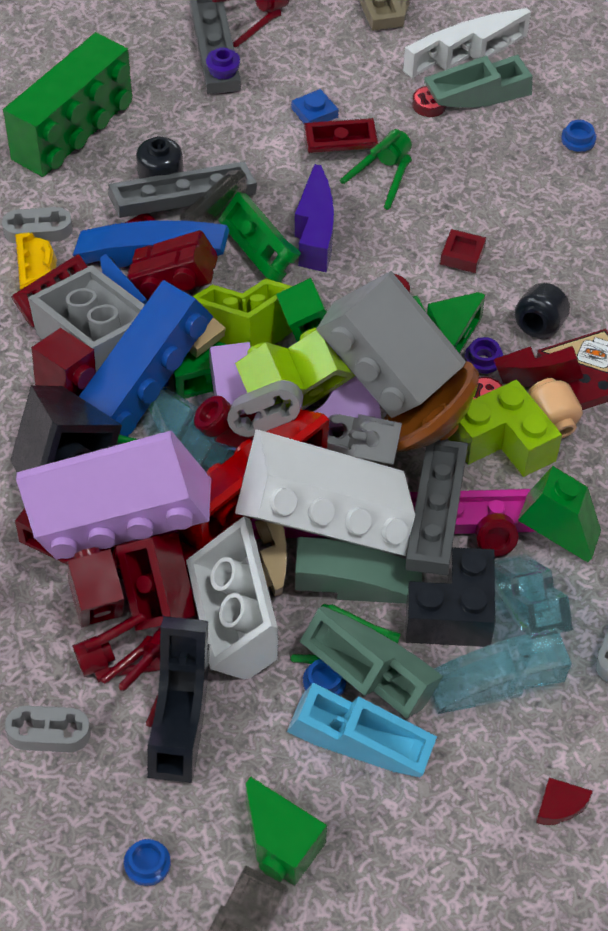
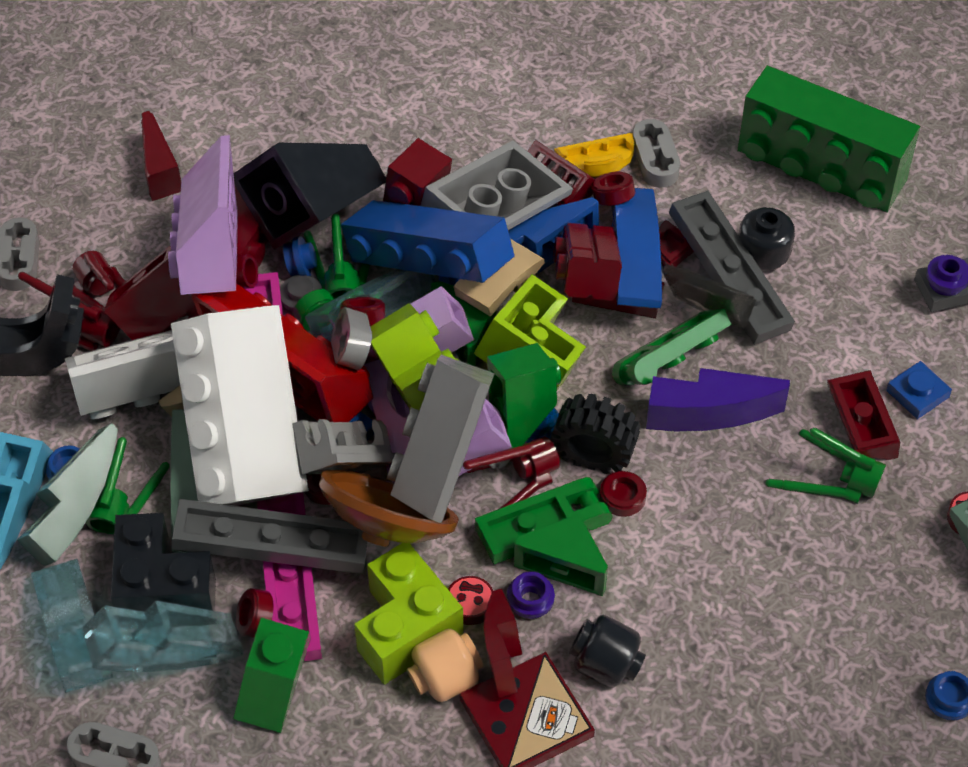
camera: 85 degrees right, 0 degrees up
(88, 245) = (613, 188): none -> dark red tile
(95, 586) = (136, 236): dark red brick -> none
(348, 275) = (595, 433): none -> black tyre
(463, 251) = (698, 562): dark red plate -> none

